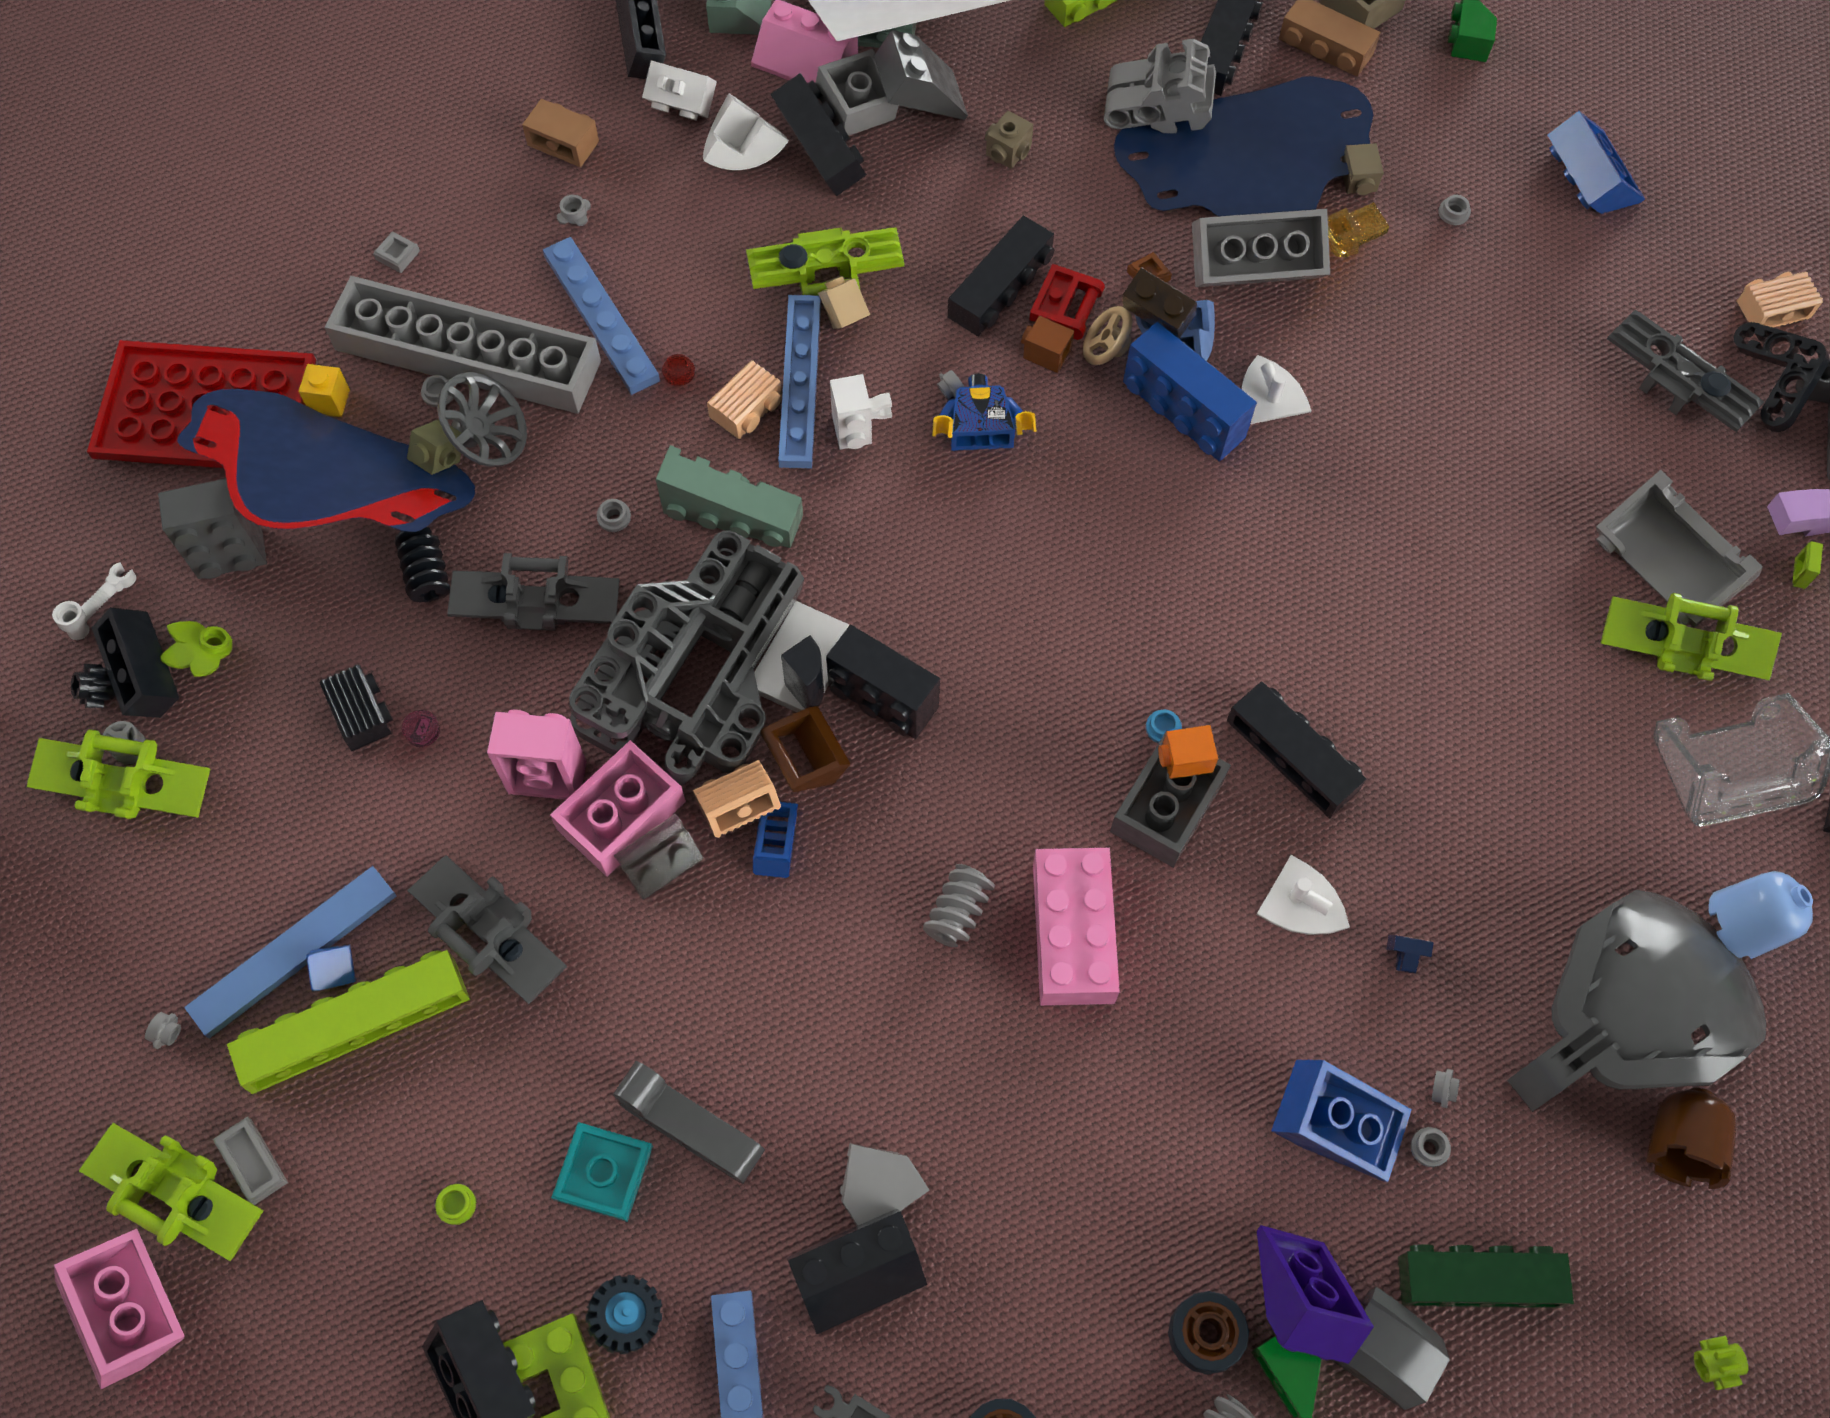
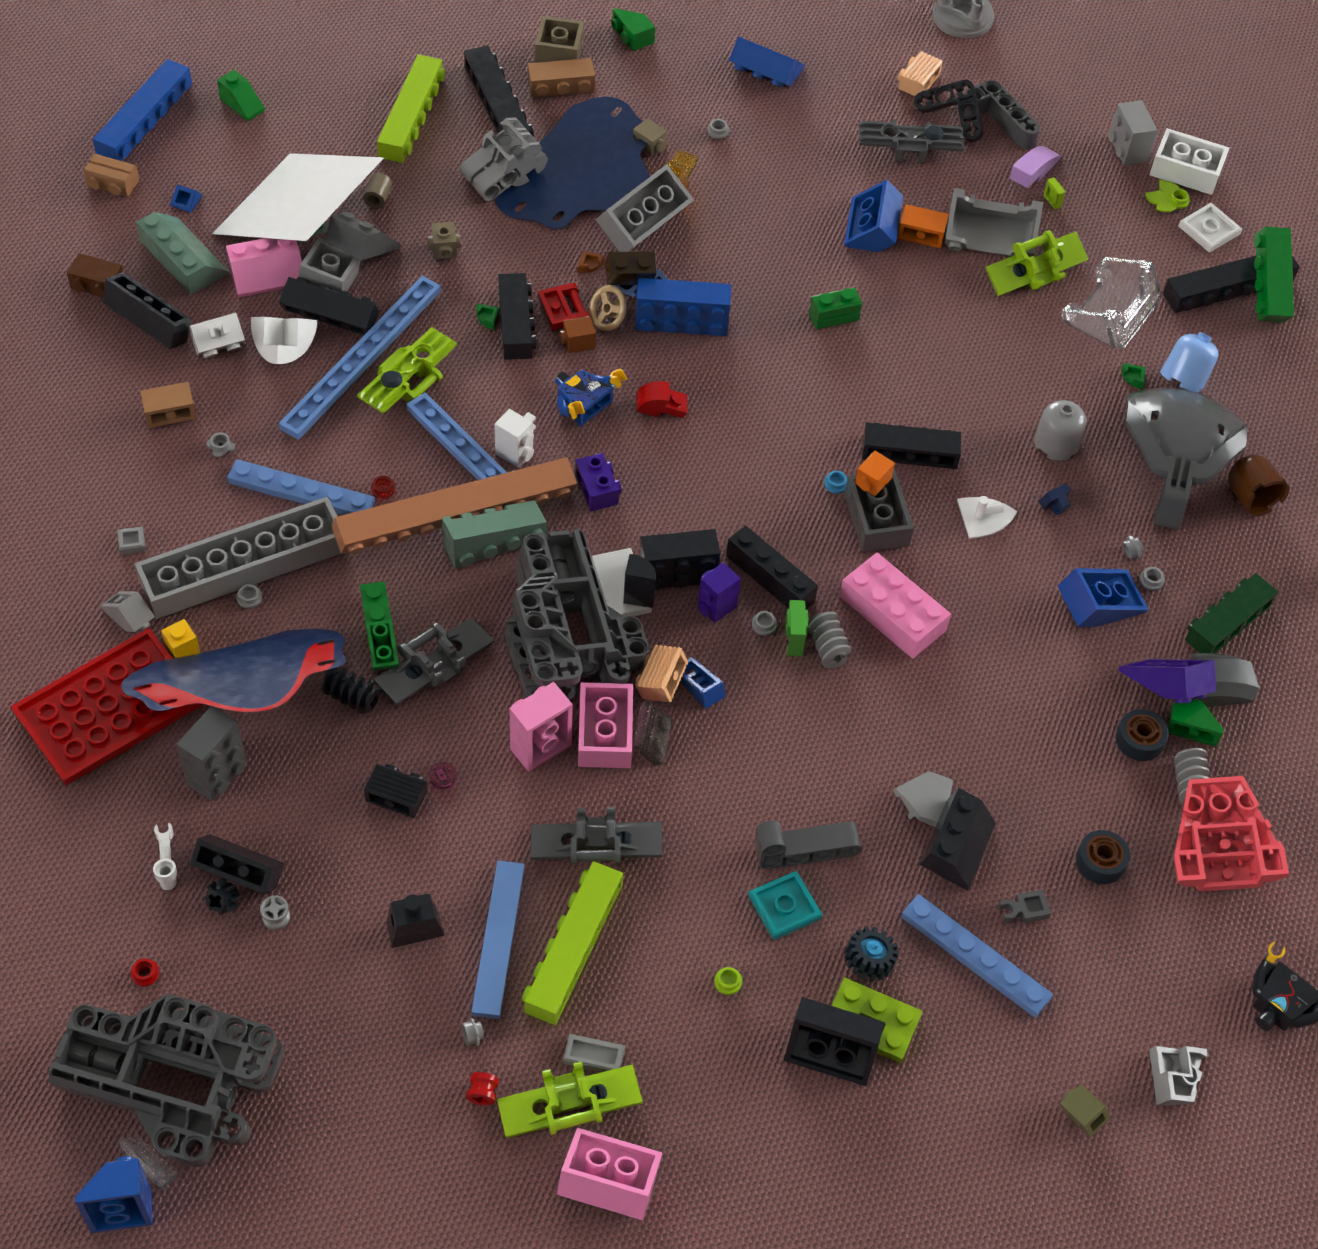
camera: 45 degrees left, 10 degrees down
(107, 1100) = (482, 1088): none -> red wheel
(116, 789) = (297, 940): lime piece -> none
(195, 647) = (262, 830): lime plate -> none
(220, 859) = (413, 920): none -> black torso
(308, 322) = (128, 611): none -> light grey slope
(330, 967) = (532, 926): slope -> none
(432, 449) = (289, 622): olive brick -> none
(477, 424) = (296, 596): dark grey wheel -> none
(518, 521) = (379, 625): none -> green slope
(613, 507) = (430, 582): light grey plate -> none
(726, 445) = (425, 512): none -> nougat brick
(745, 400) = (442, 469): light nougat brick -> none
(800, 211) = (359, 358): none -> medium blue plate
(817, 743) = (674, 618): reddish brown tile -> none
(843, 302) = (444, 386): tan brick -> none
(884, 753) = (718, 592): none -> dark purple brick
(896, 526) = (597, 481): none -> dark purple brick
(912, 829) = (764, 623): none -> light grey plate
(931, 861) = (796, 627): none -> bright green brick
(949, 384) = (547, 391): light grey plate -> none
(975, 253) = (487, 315): none -> green tile
(978, 774) = (770, 568): none -> black brick
(1000, 38) = (377, 190): none -> dark tan brick
(1058, 479) = (658, 398): none -> red brick
(1274, 390) = (719, 275): white shield -> none
(1373, 517) = (835, 308): none -> green brick
(1499, 870) = (1060, 430): none -> light grey cylinder
(1536, 441) = (874, 218): none -> blue slope
(1587, 489) = (923, 226): none -> orange brick
(1680, 870) = (1134, 375): none -> green tile

